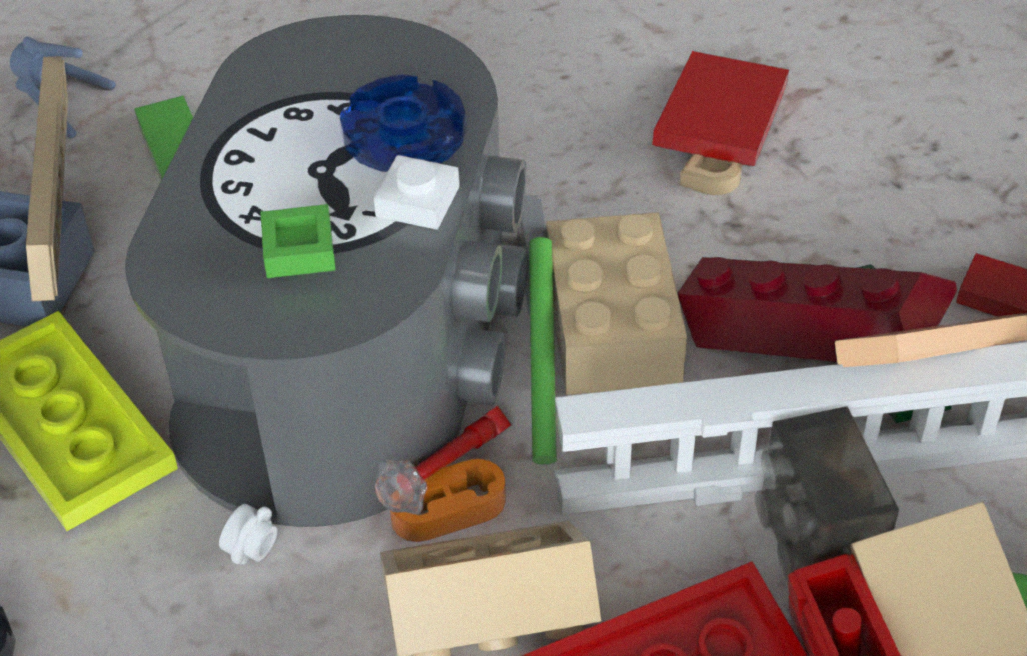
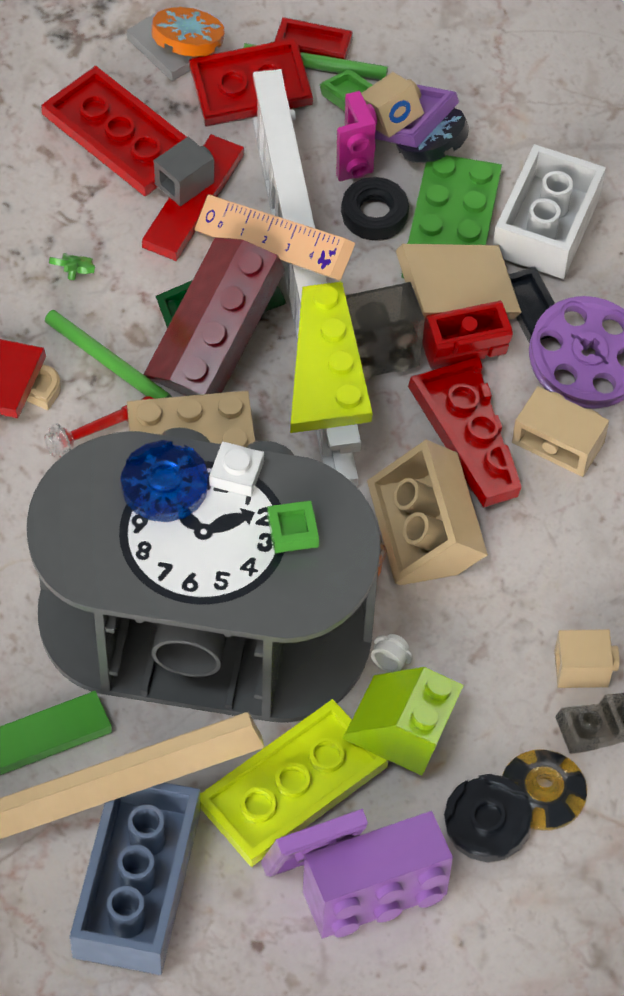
camera: 95 degrees left, 10 degrees up
(112, 532) = (404, 716): none -> lime slope
(615, 182) = (61, 440): none -> piece
(703, 388) = (328, 366): none -> neon yellow wing
(781, 215) = (104, 356): none -> bright green piece
(918, 189) = (74, 264): none -> bright green plant

